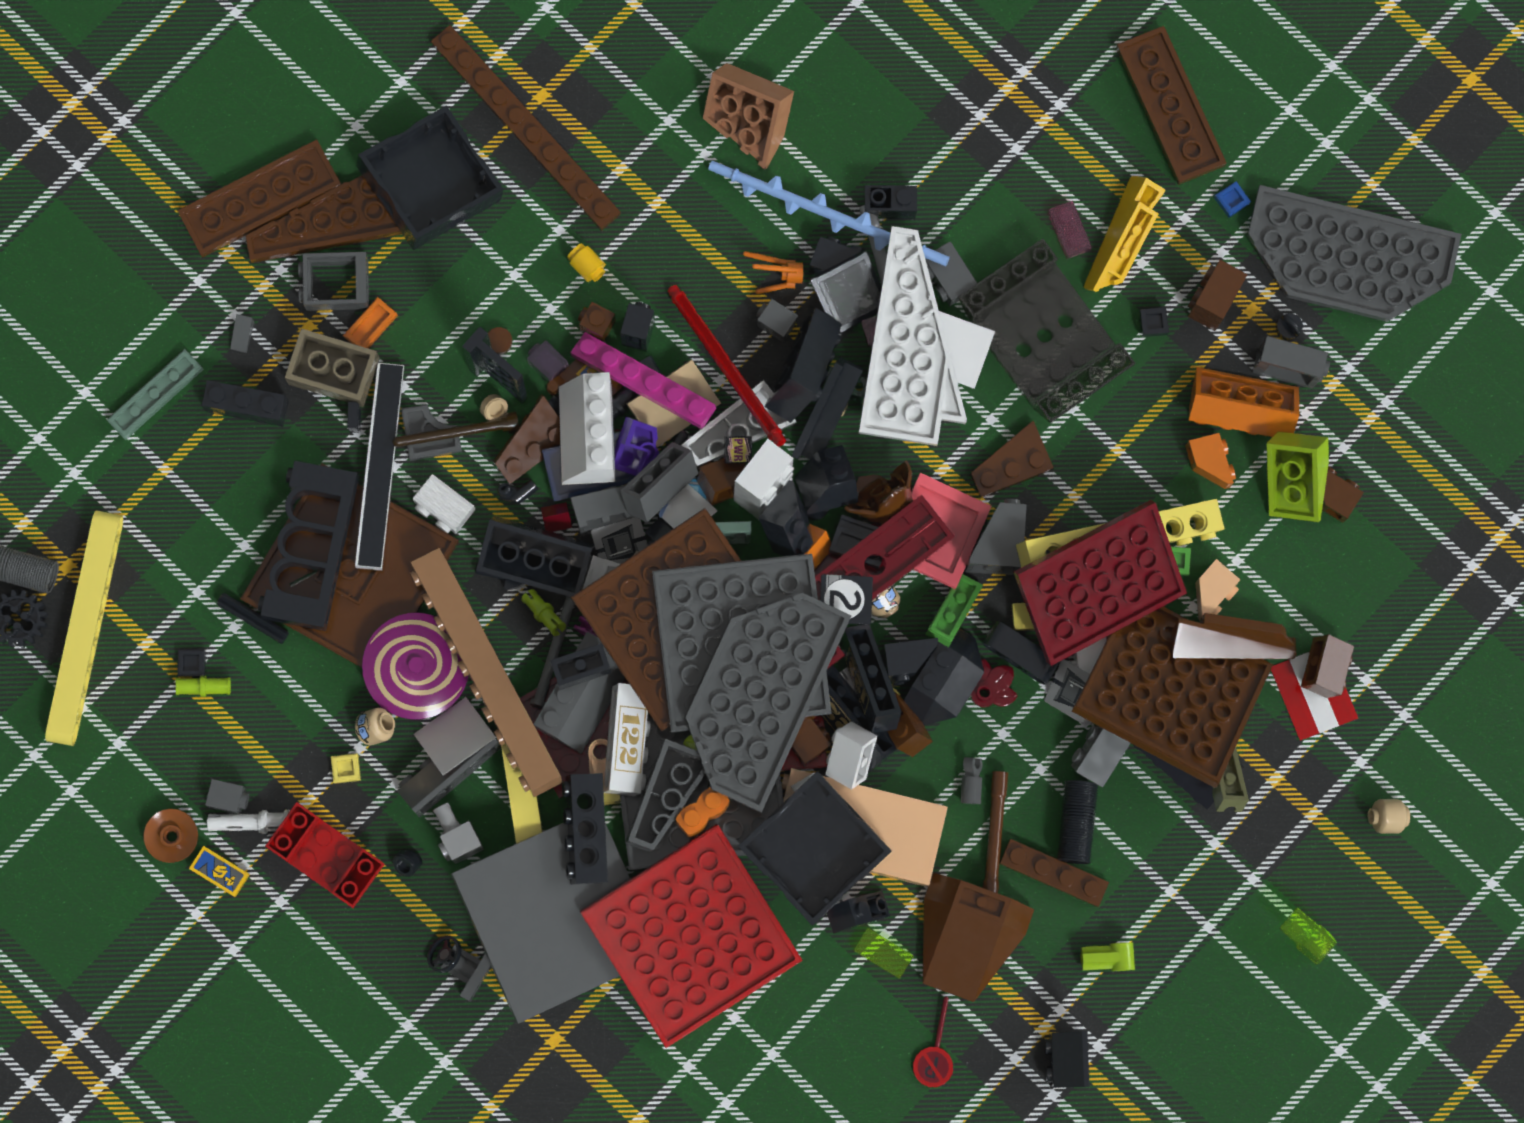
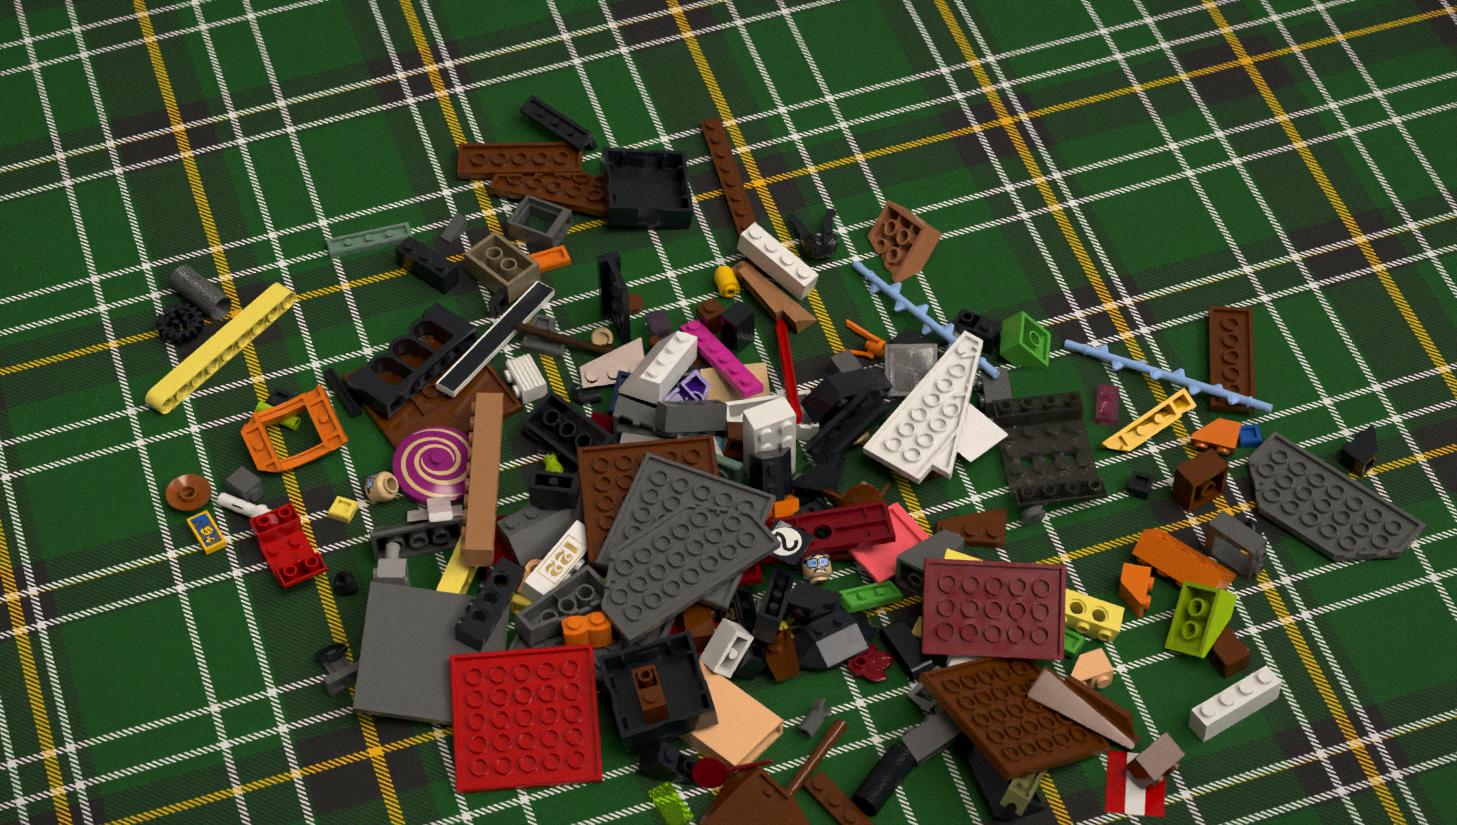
camera: 35 degrees right, 30 degrees down
(264, 676) = (324, 419): none -> orange wedge
(275, 130) = (558, 124): none -> black fence
(464, 738) = (439, 509): none -> white tile
(632, 213) = (777, 261): none -> white brick
(645, 258) = (772, 298): none -> medium nougat wedge
(664, 160) = (816, 246): none -> black hair
(811, 859) = (650, 694): none -> reddish brown slope
(913, 897) = (713, 772): none -> dark red piece
(947, 190) = (1025, 342): none -> bright green slope
(1065, 420) = (1033, 515): none -> dark grey tile
(1128, 162) = (1177, 376): none -> light blue plant
(1206, 220) = (1219, 435): none -> orange slope
(1359, 168) = (1361, 453): none -> black slope
(1371, 555) = (1234, 703): none -> white brick

